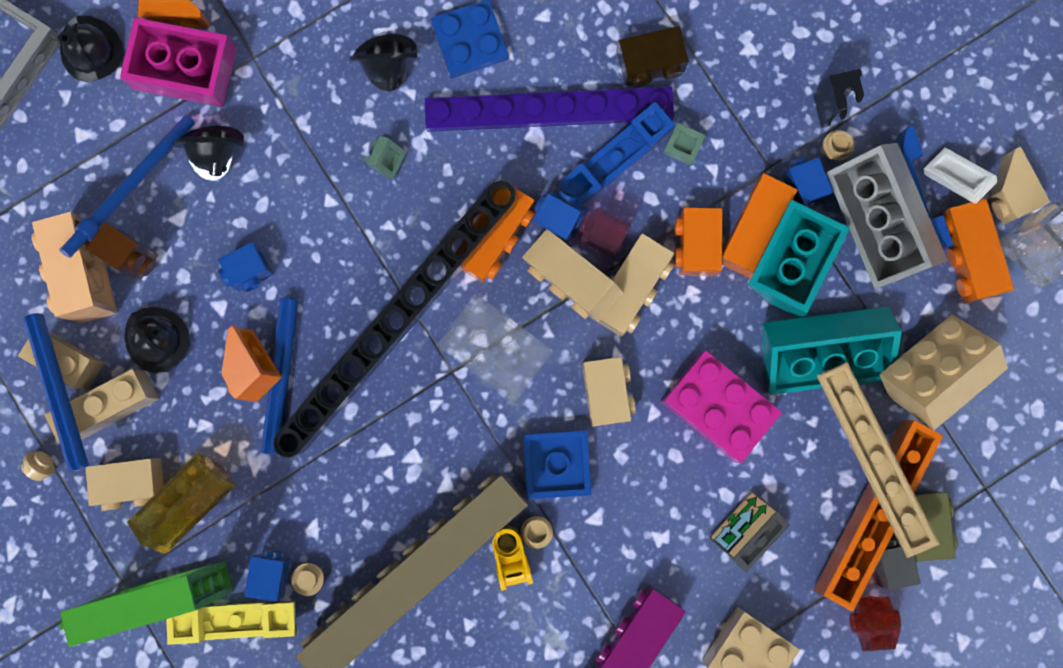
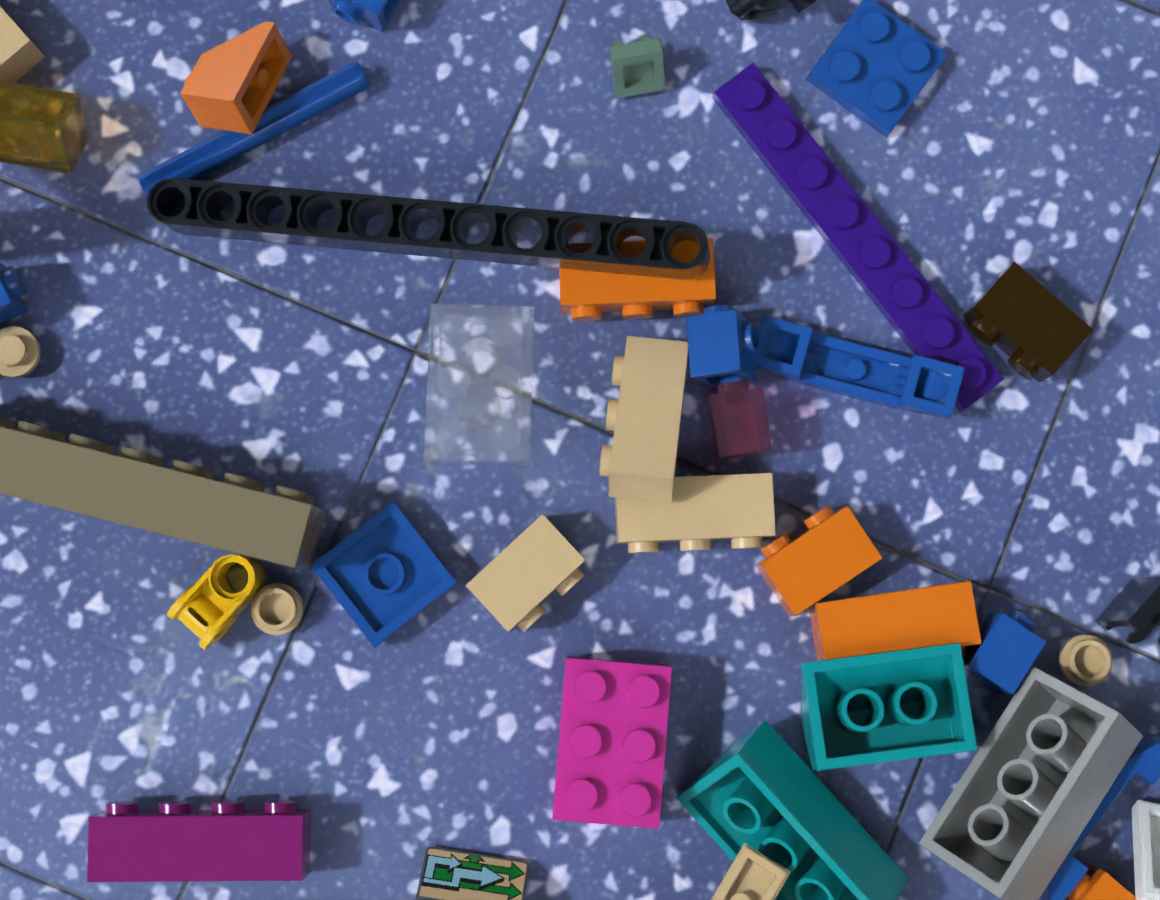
camera: 50 degrees right, 0 degrees up
(684, 144) = (935, 448): sand green tile -> none

